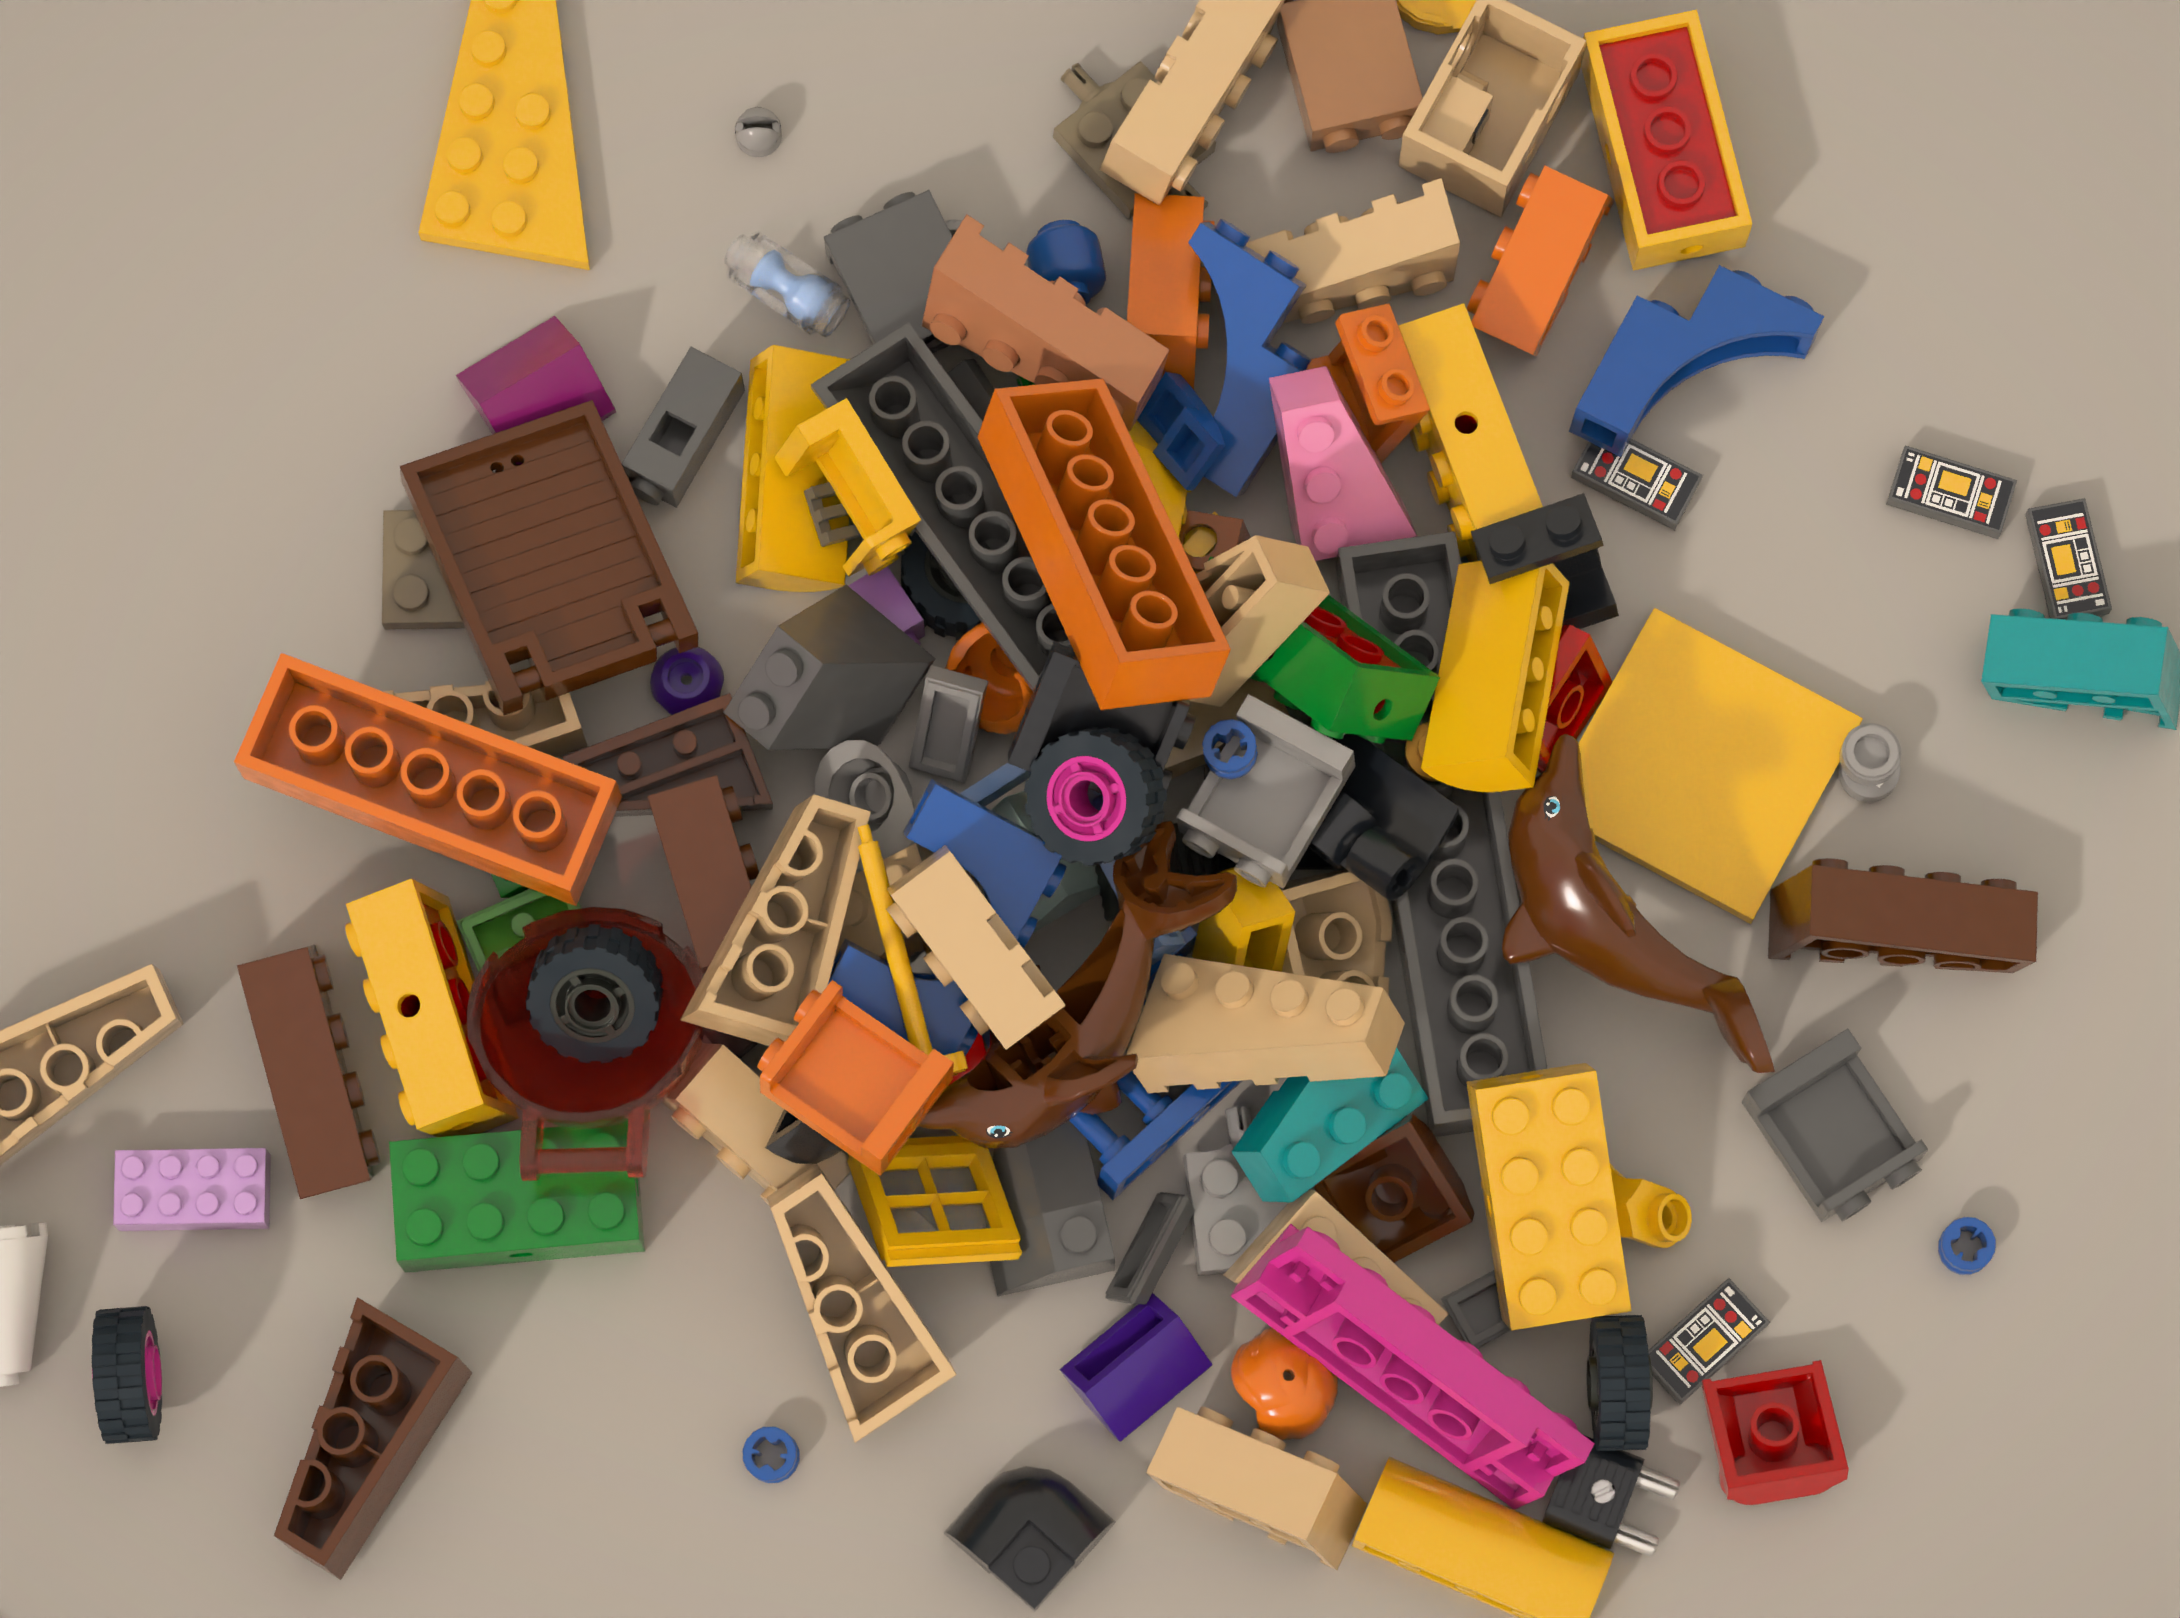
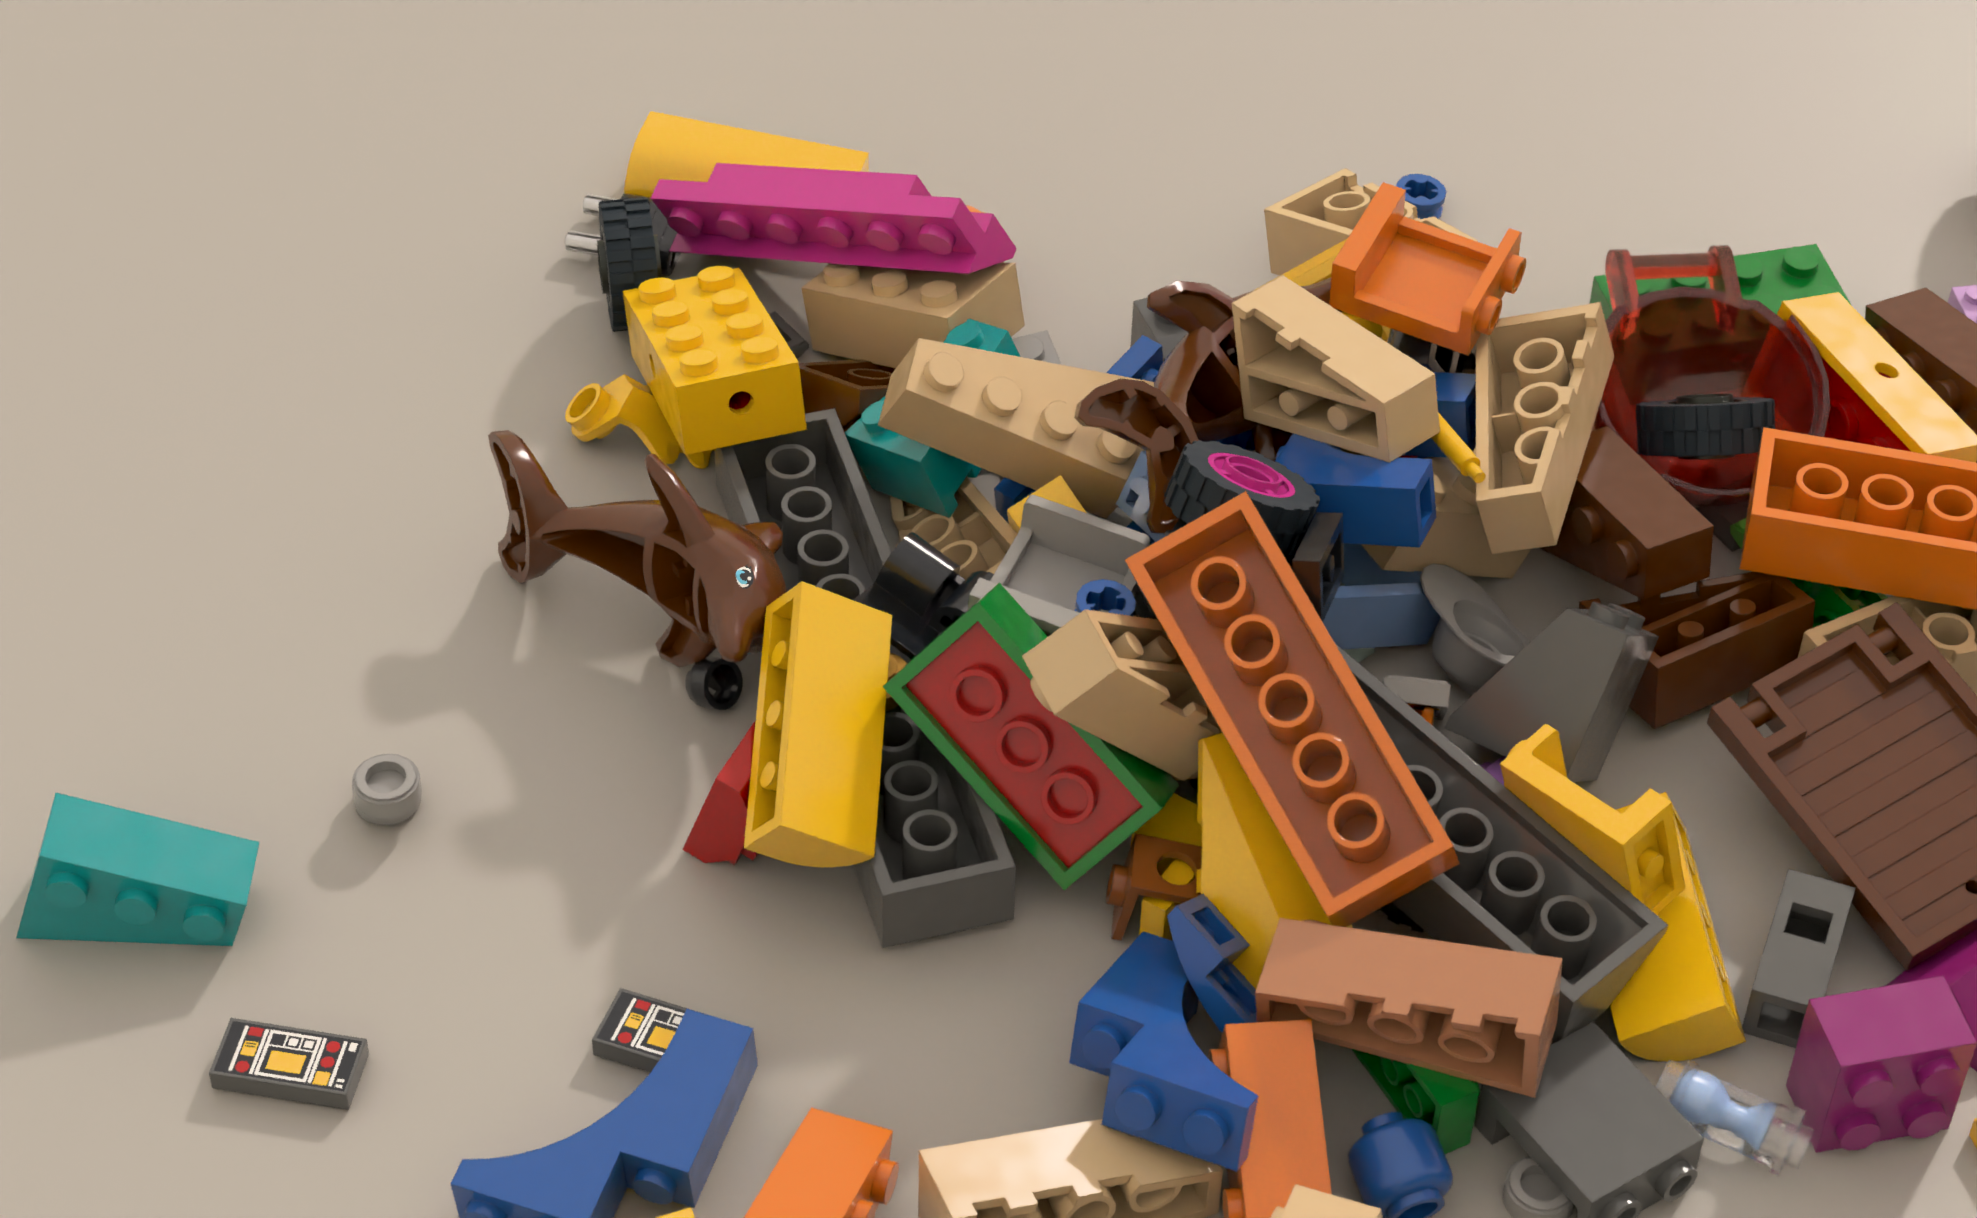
camera: 170 degrees right, 30 degrees down
(366, 1436) = (1790, 167): reddish brown wedge -> none
(659, 285) = (1880, 1064): none -> magenta brick
(673, 666) = (1698, 749): dark purple plate -> none
(1029, 1530) = (1168, 160): black brick -> none
(1136, 1367) = (1096, 272): dark purple brick -> none
(1151, 1249) = (1102, 336): dark grey tile -> none
(1258, 1483) = (981, 174): tan wedge -> none
(1330, 470) = (1037, 937): bright pink wedge -> none
(1376, 377) = (1016, 1025): orange panel -> none
(1467, 429) = (881, 1009): yellow brick -> none
(1557, 535) = (778, 866): black panel -> none
(1705, 1340) = (546, 342): tile -> none
(1707, 764) = (573, 783): yellow tile -> none
(1775, 1434) = (476, 268): red slope -> none
(1834, 1129) = (416, 493): dark grey panel -> none
(1903, 918) = (354, 639): reddish brown wedge -> none
(1980, 1258) = (284, 413): blue bush -> none
(2068, 559) = (150, 1009): tile -> none

